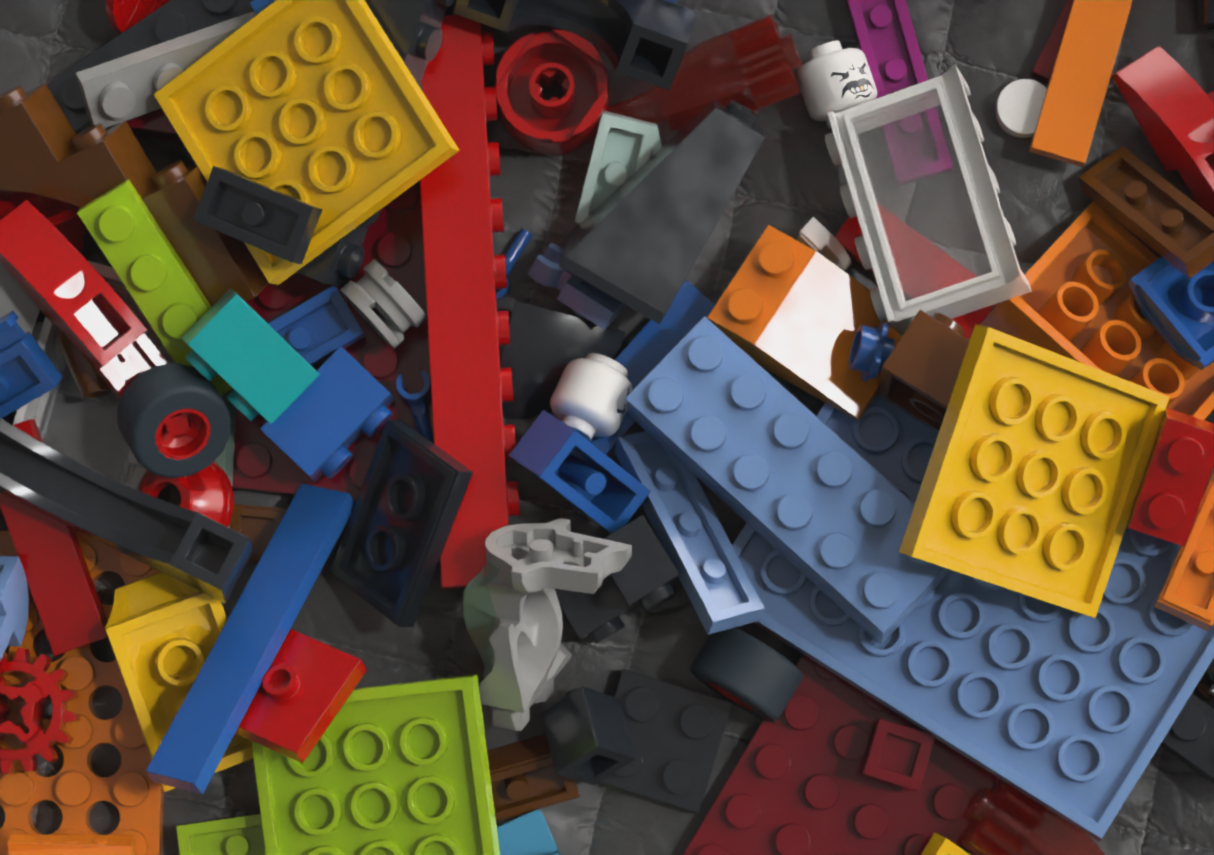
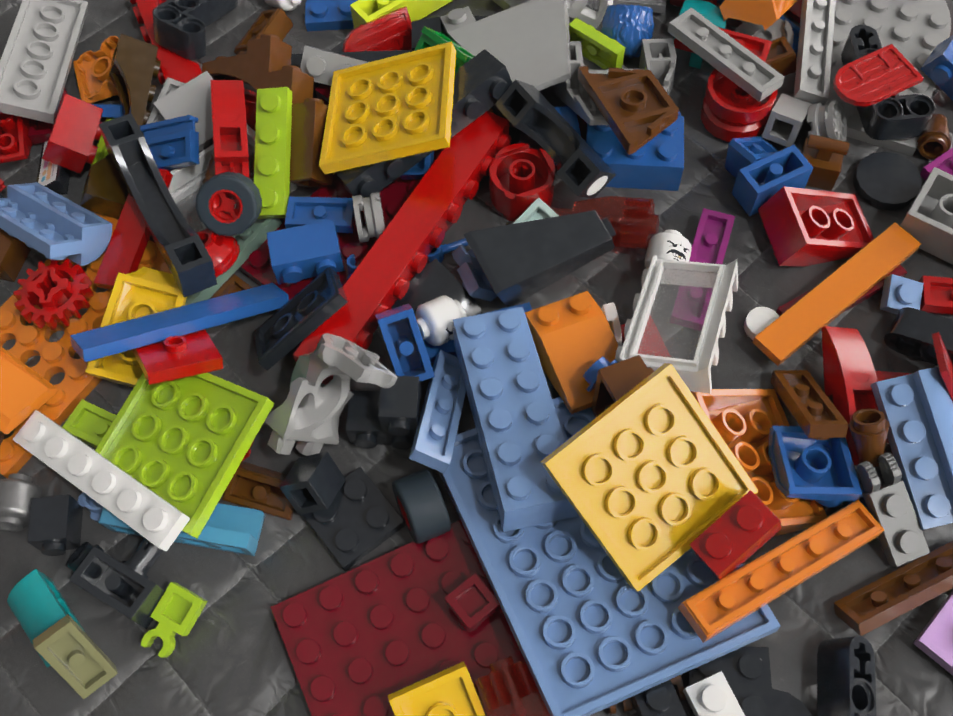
camera: 35 degrees right, 20 degrees down
(249, 357) = (284, 192): teal brick -> none
(257, 215) = (334, 128): black plate -> none

